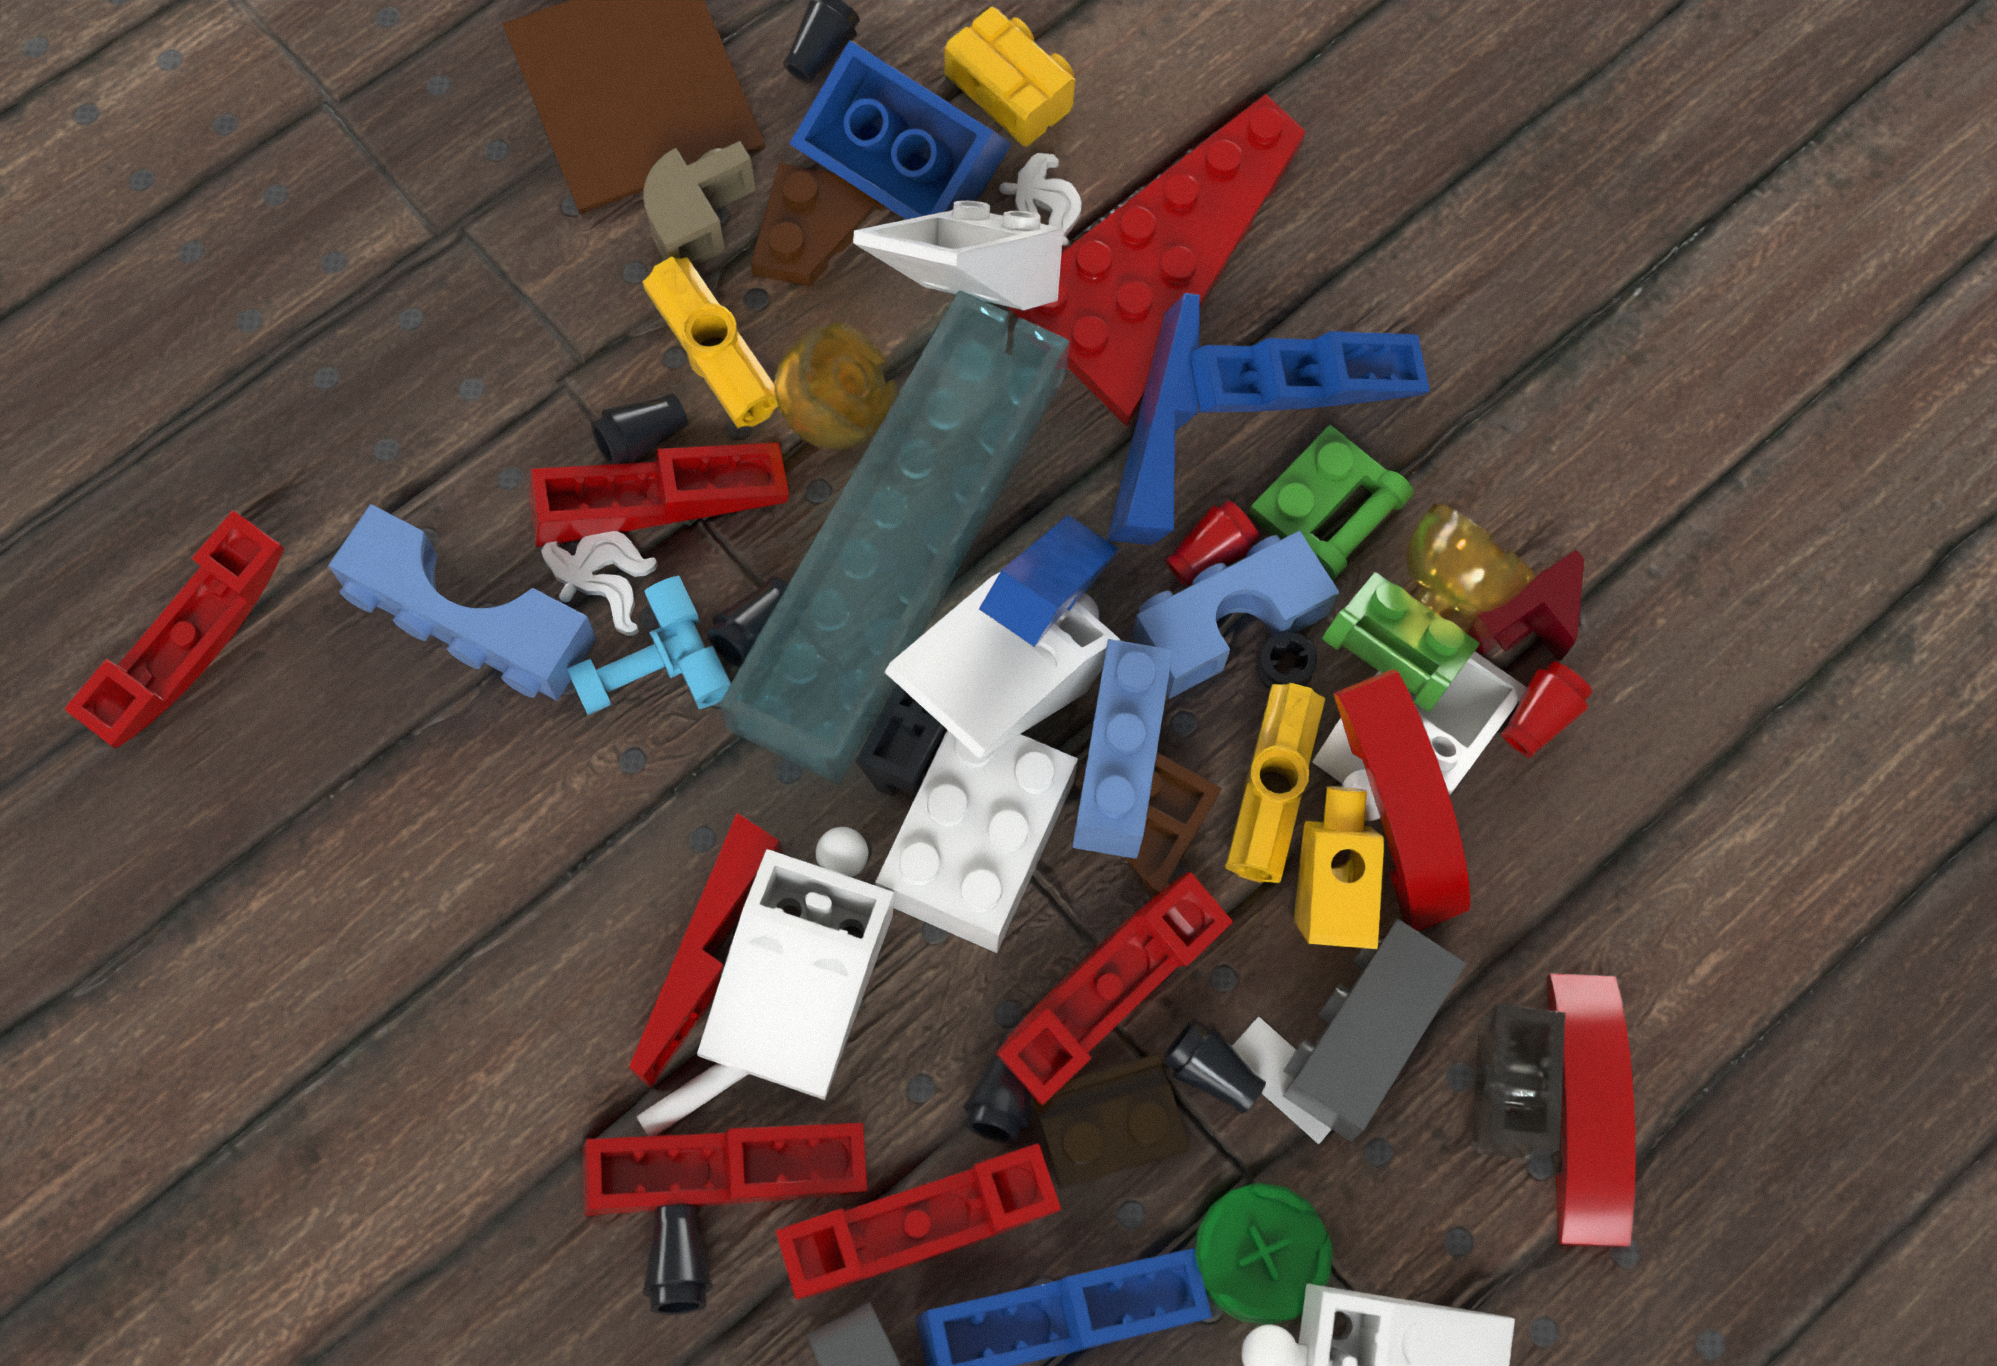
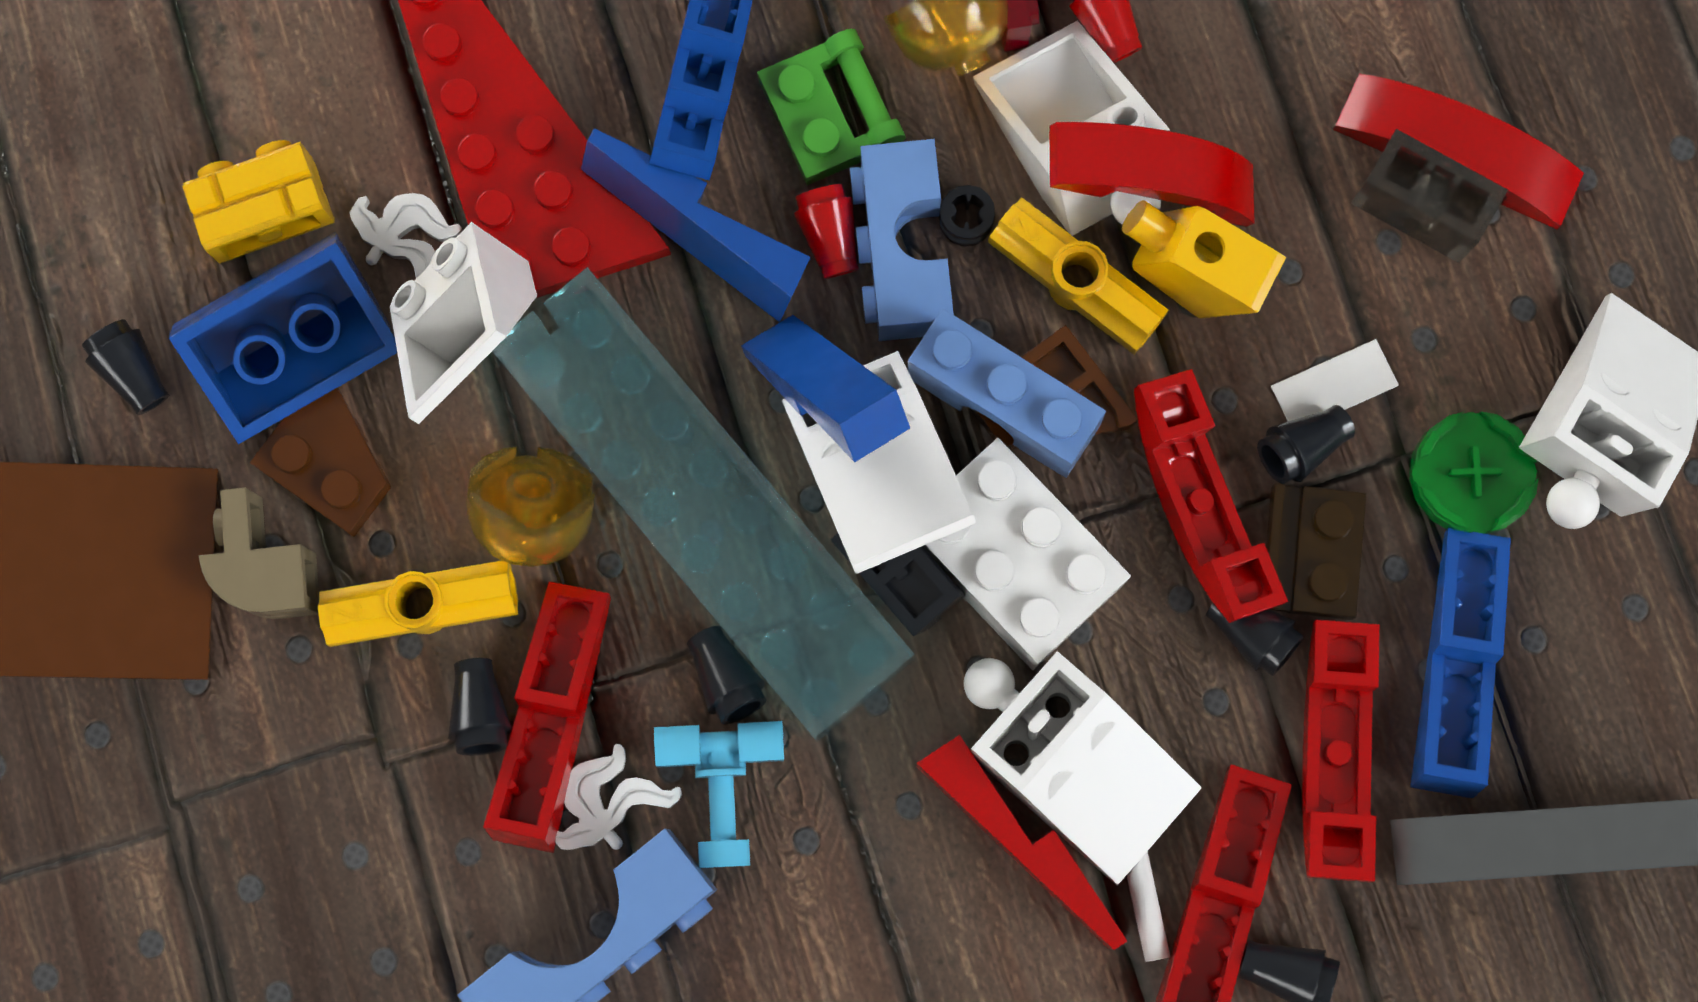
camera: 60 degrees left, 10 degrees up
(1371, 1029) = (1334, 297): dark grey brick -> none
(1404, 635) = (1001, 106): bright green plate -> none

